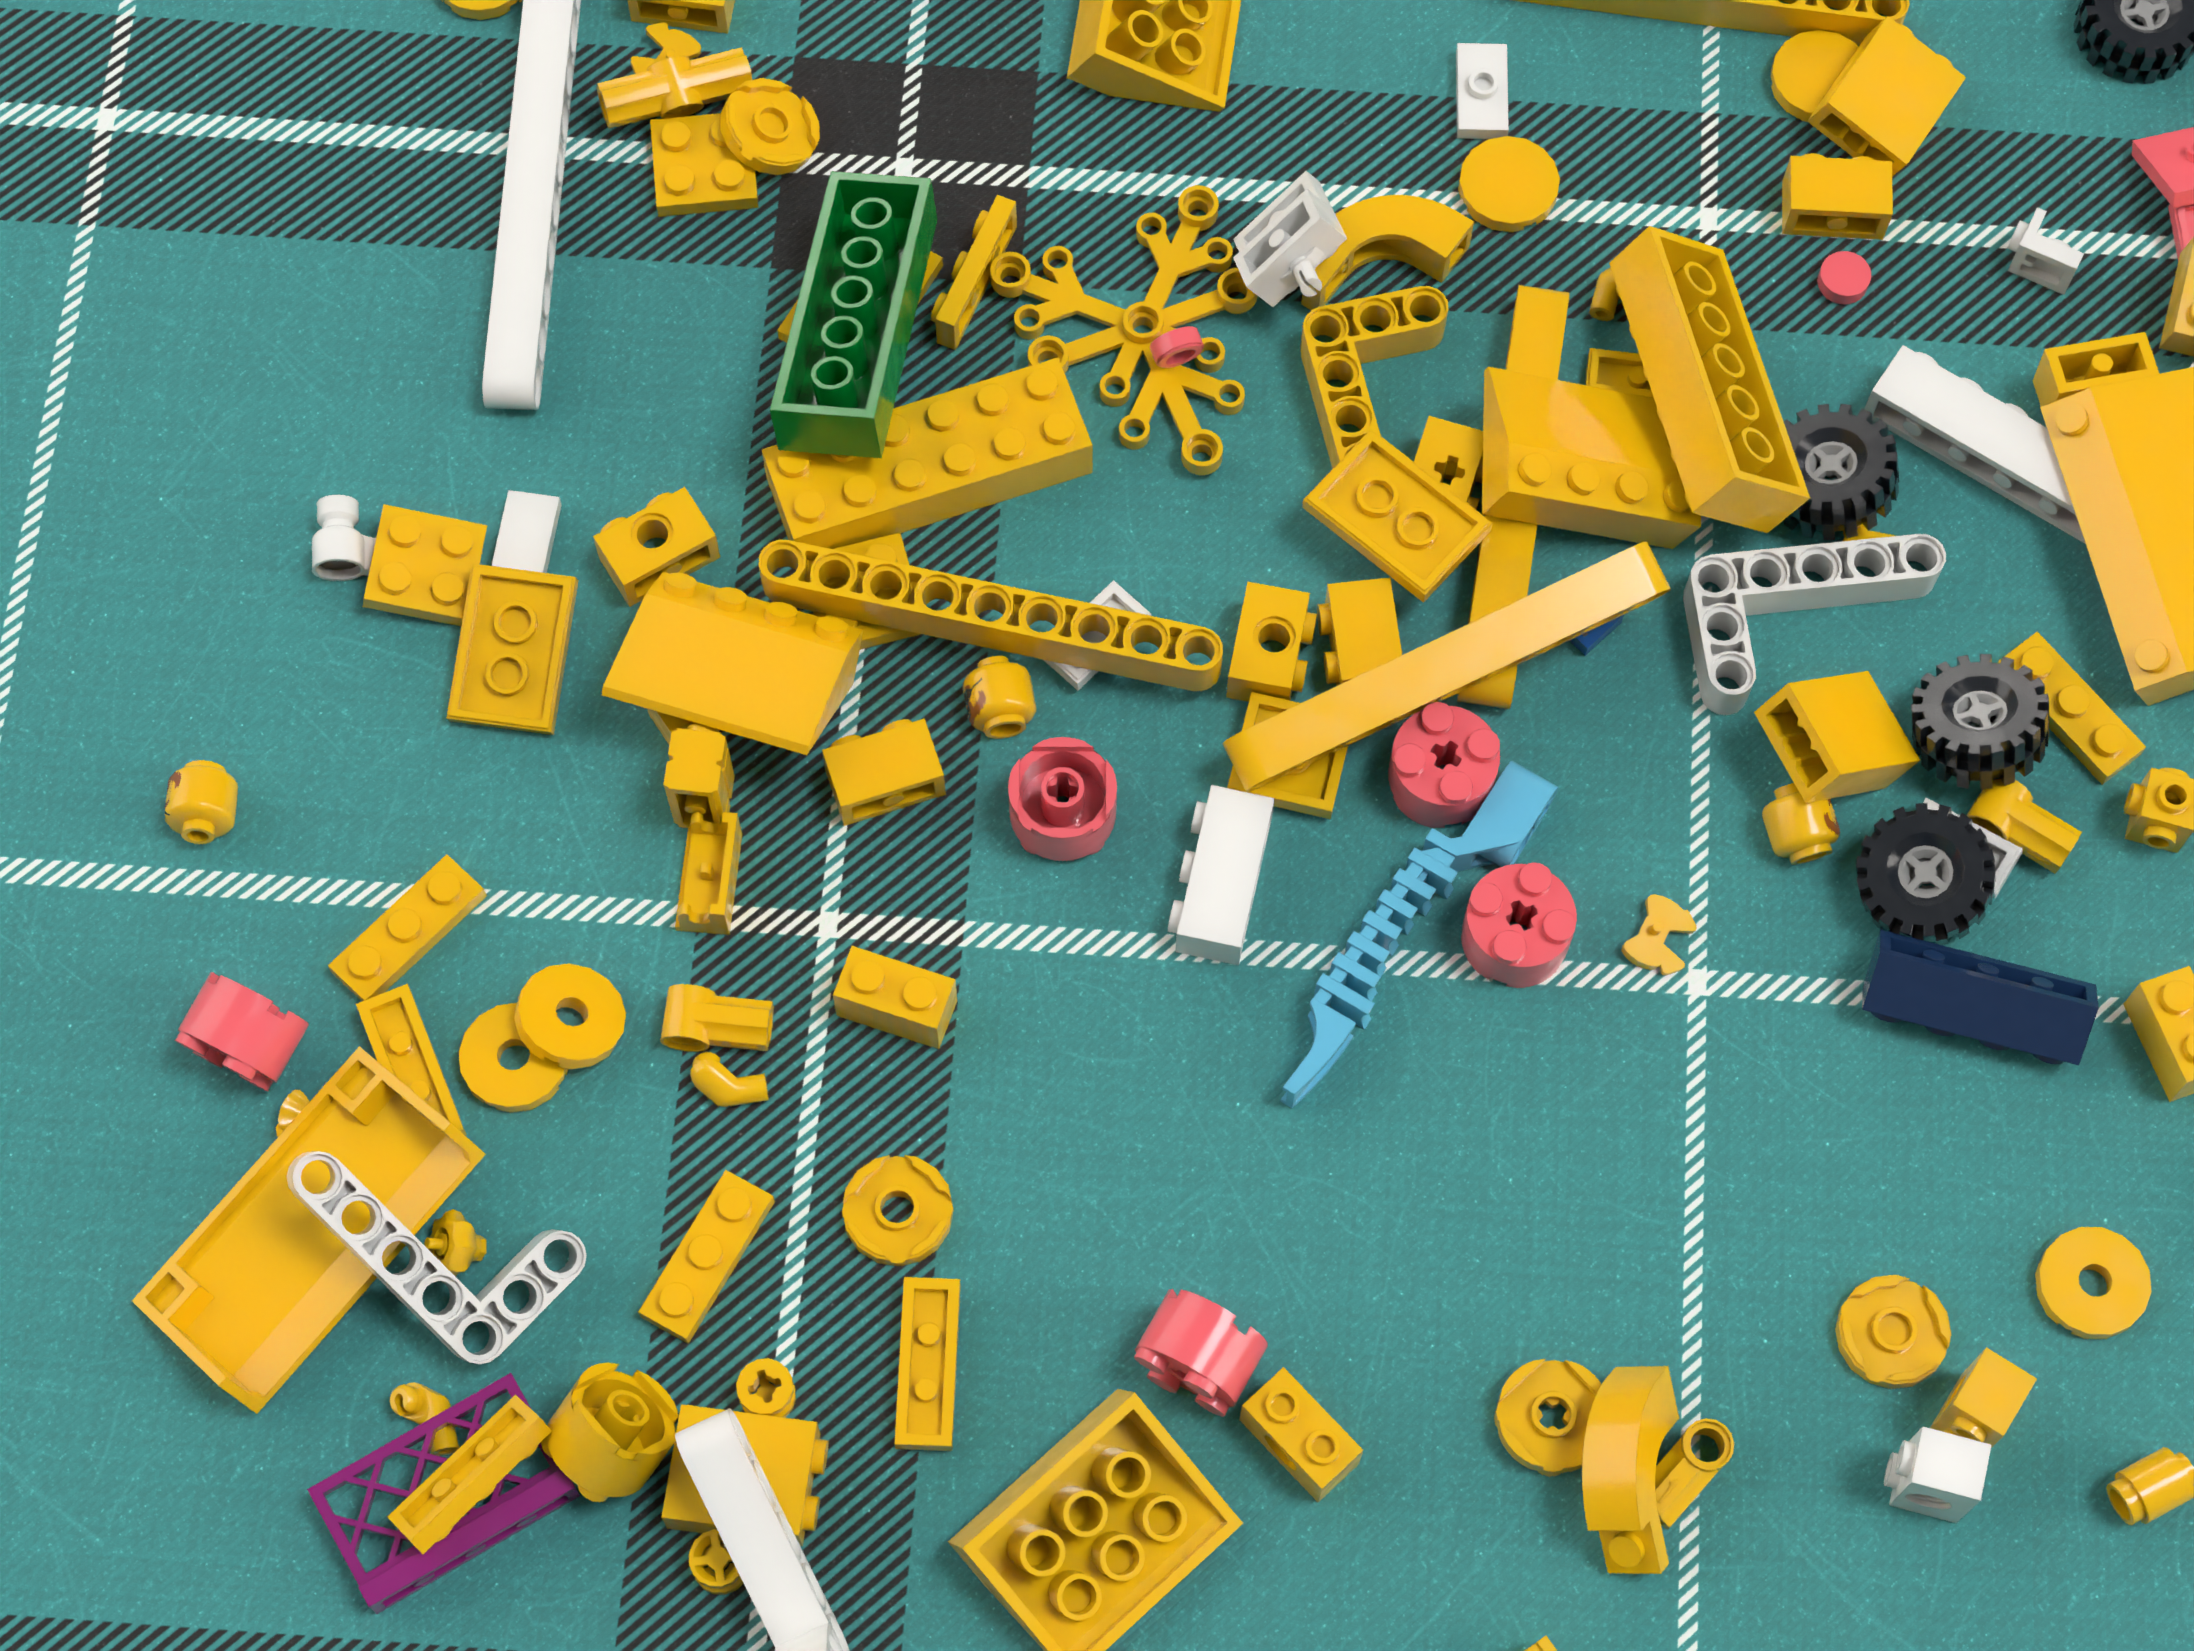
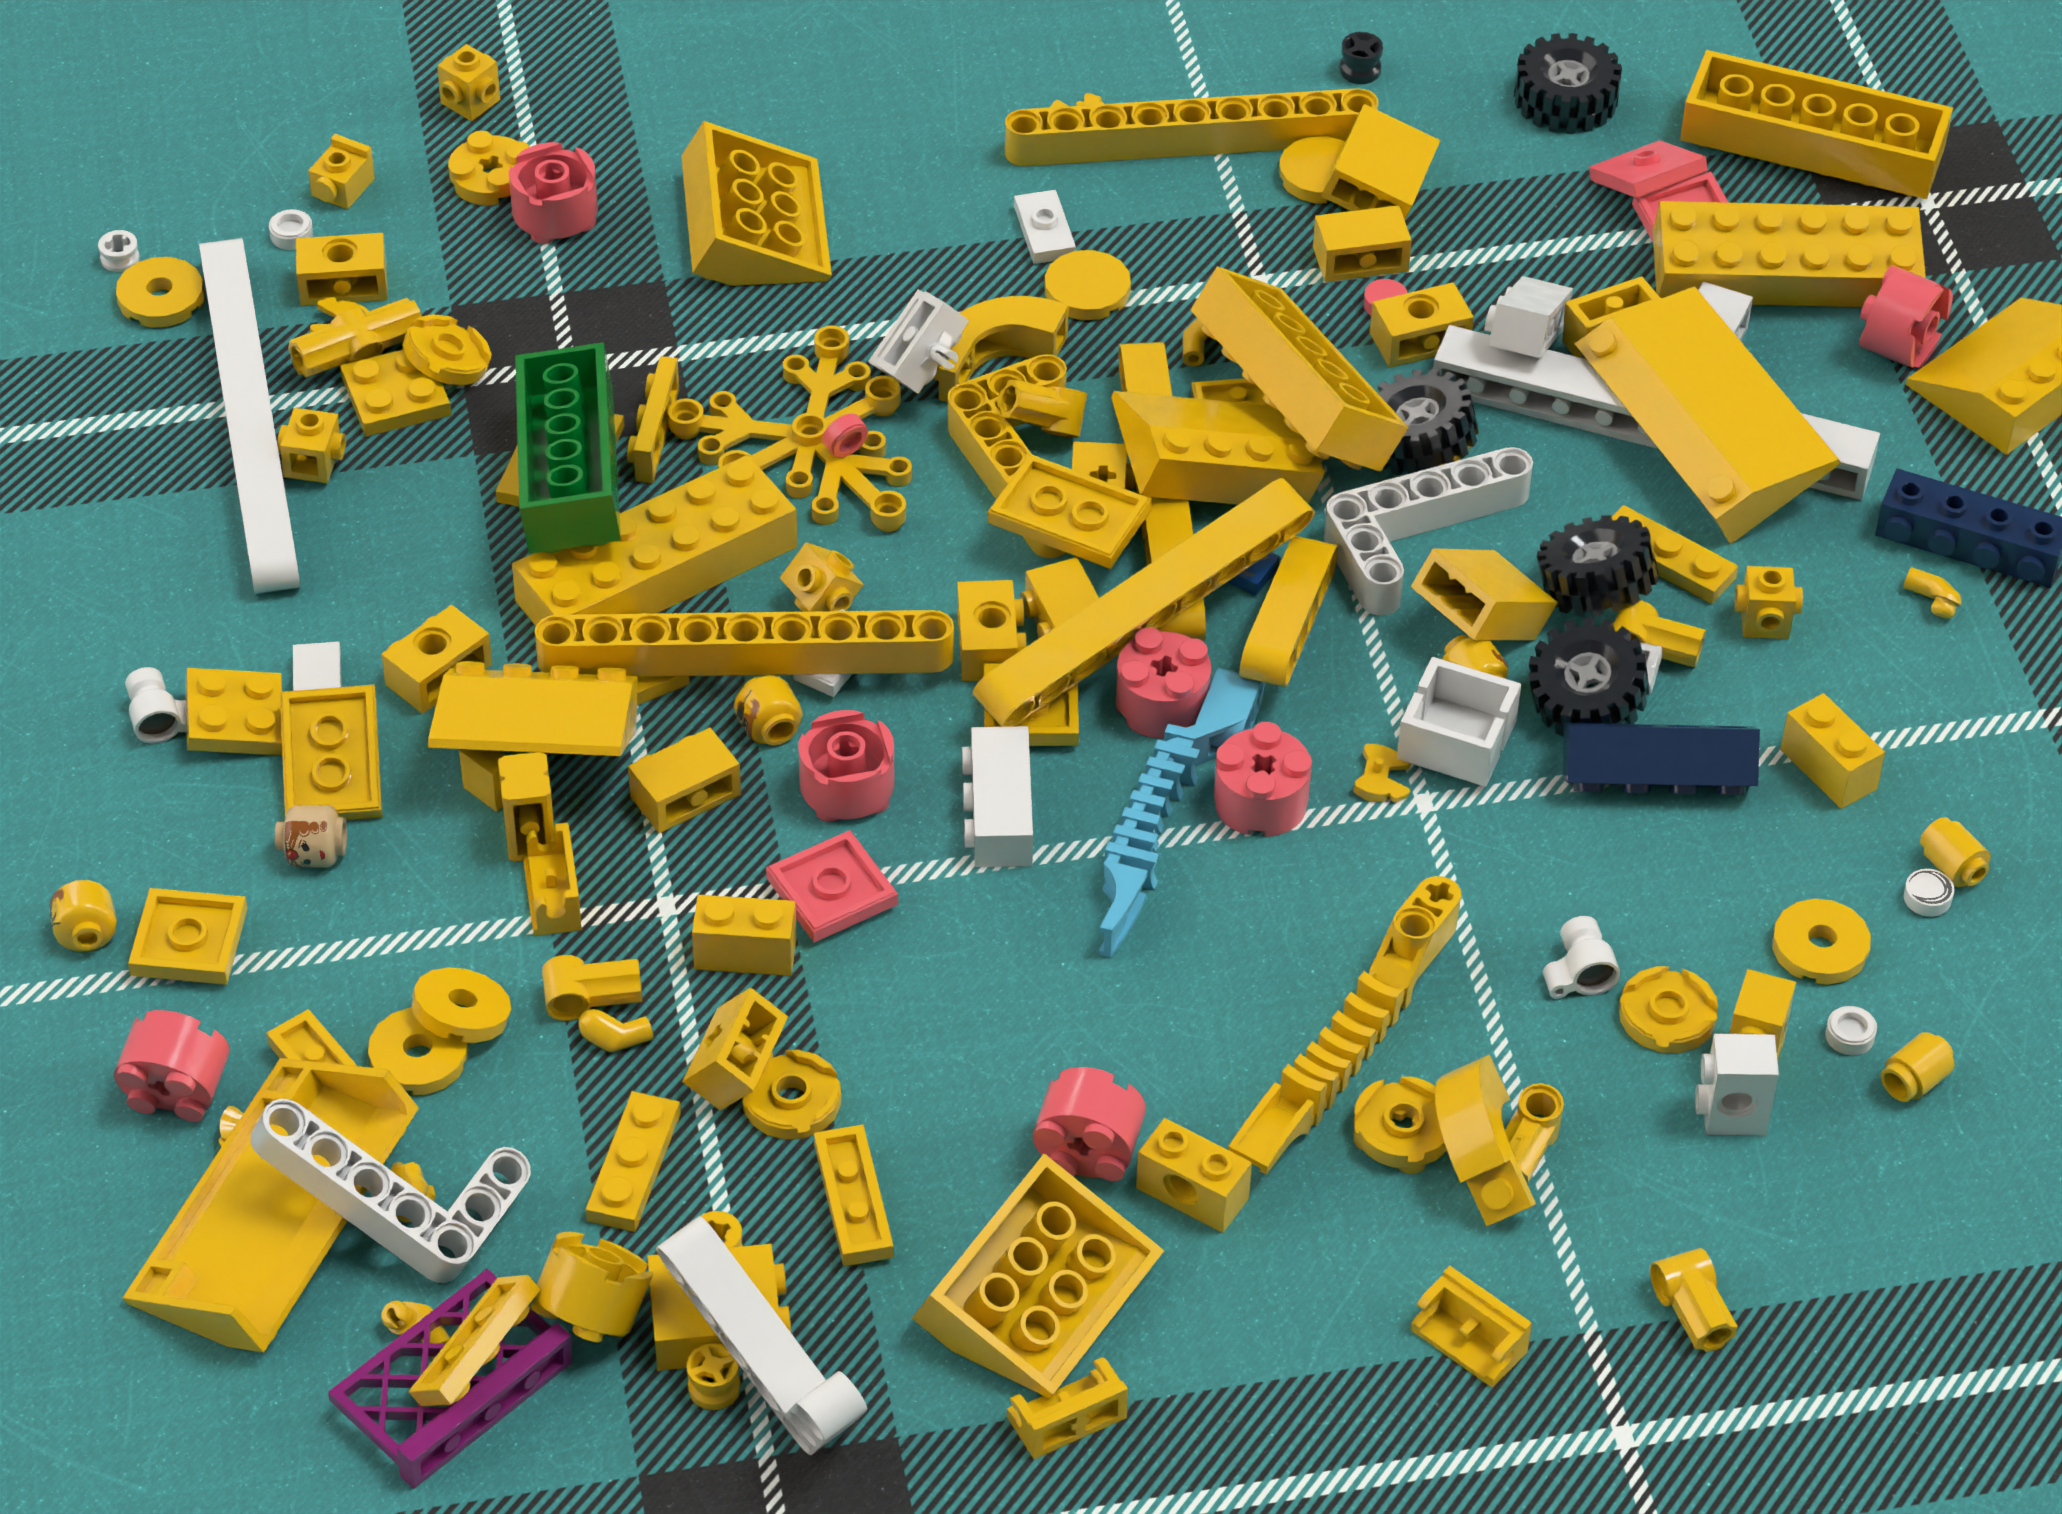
camera: 15 degrees left, 20 degrees down
(306, 852) = (188, 936): none -> yellow plate
(408, 930) = (295, 976): yellow plate -> none
(466, 754) = (311, 836): none -> tan head
(589, 227) = (311, 445): none -> yellow brick
(845, 1151) = (735, 1049): none -> yellow brick
(1009, 949) = (832, 885): none -> coral plate
(1100, 540) = (821, 579): none -> yellow brick
(1418, 362) = (1052, 408): none -> yellow piece
(1526, 1287) = (1311, 1085): none -> yellow piece
(1609, 704) = (1288, 611): none -> yellow beam
(1764, 901) = (1458, 721): none -> white piece
(1819, 1255) = (1589, 964): none -> white piece
(1853, 344) = (1415, 323): none -> yellow brick
(1996, 356) = (1528, 317): none -> white brick
(2041, 258) = (1543, 254): white bracket -> none
(2092, 1410) = (1851, 1030): none -> white tile

